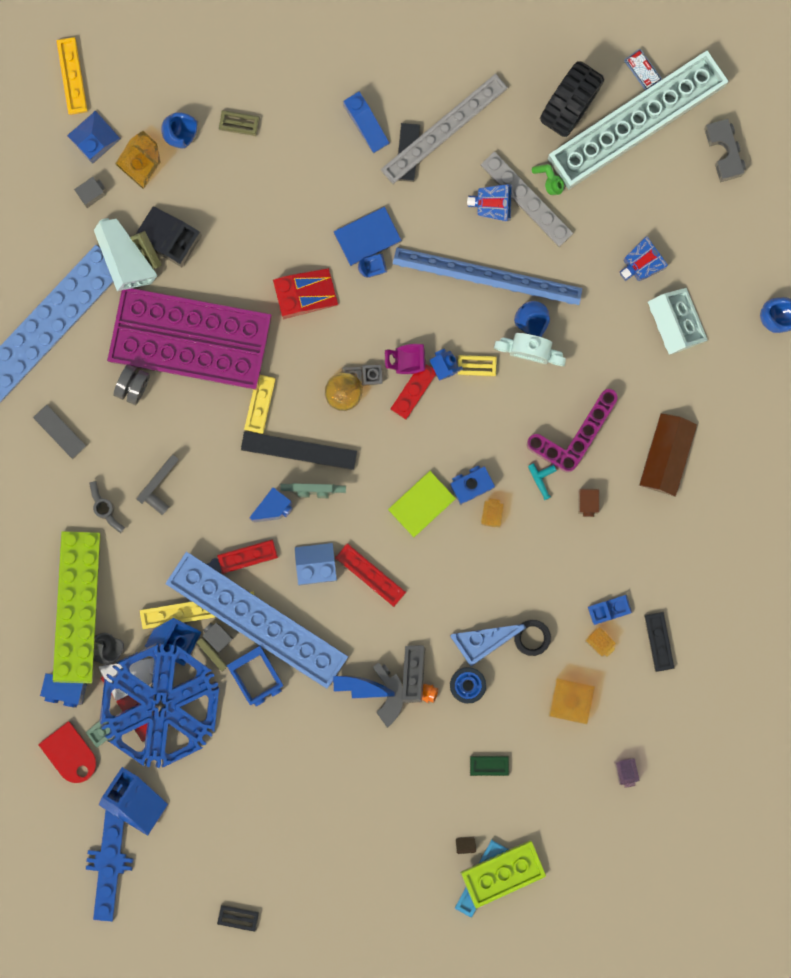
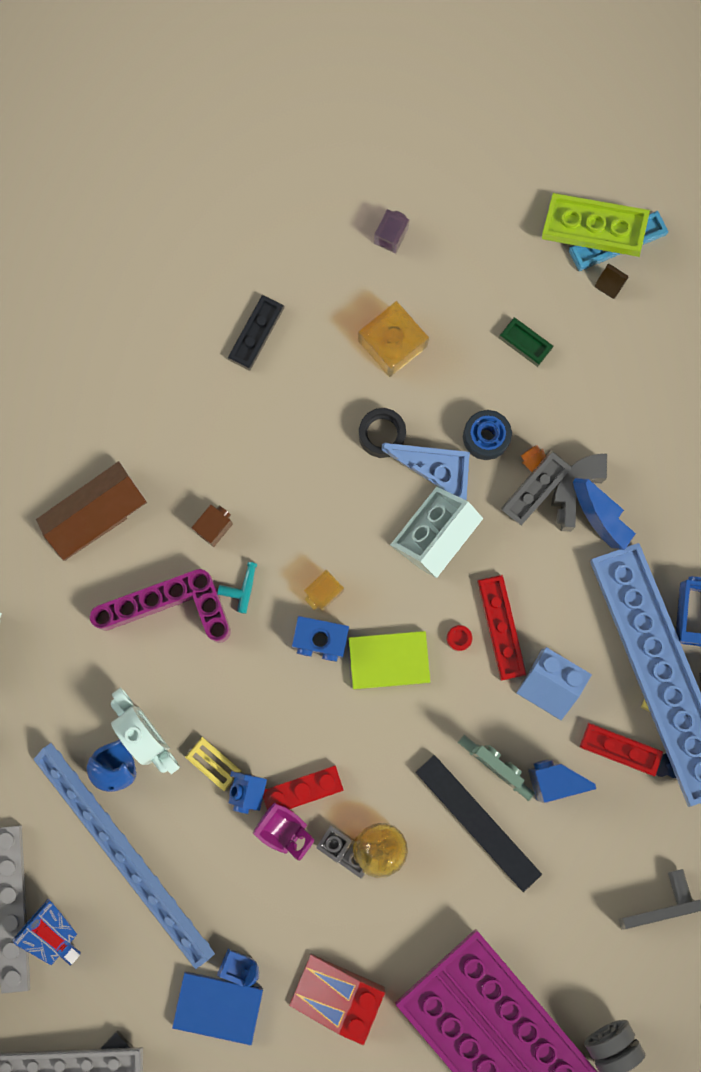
camera: 140 degrees left, 5 degrees down
(260, 405) = (482, 908): light yellow tile -> none
(390, 549) = (459, 638): none -> red tile
(452, 602) = (437, 531): none -> light aqua slope
(601, 642) = (316, 374): clear yellow brick -> none
(610, 609) = (280, 401): blue slope -> none

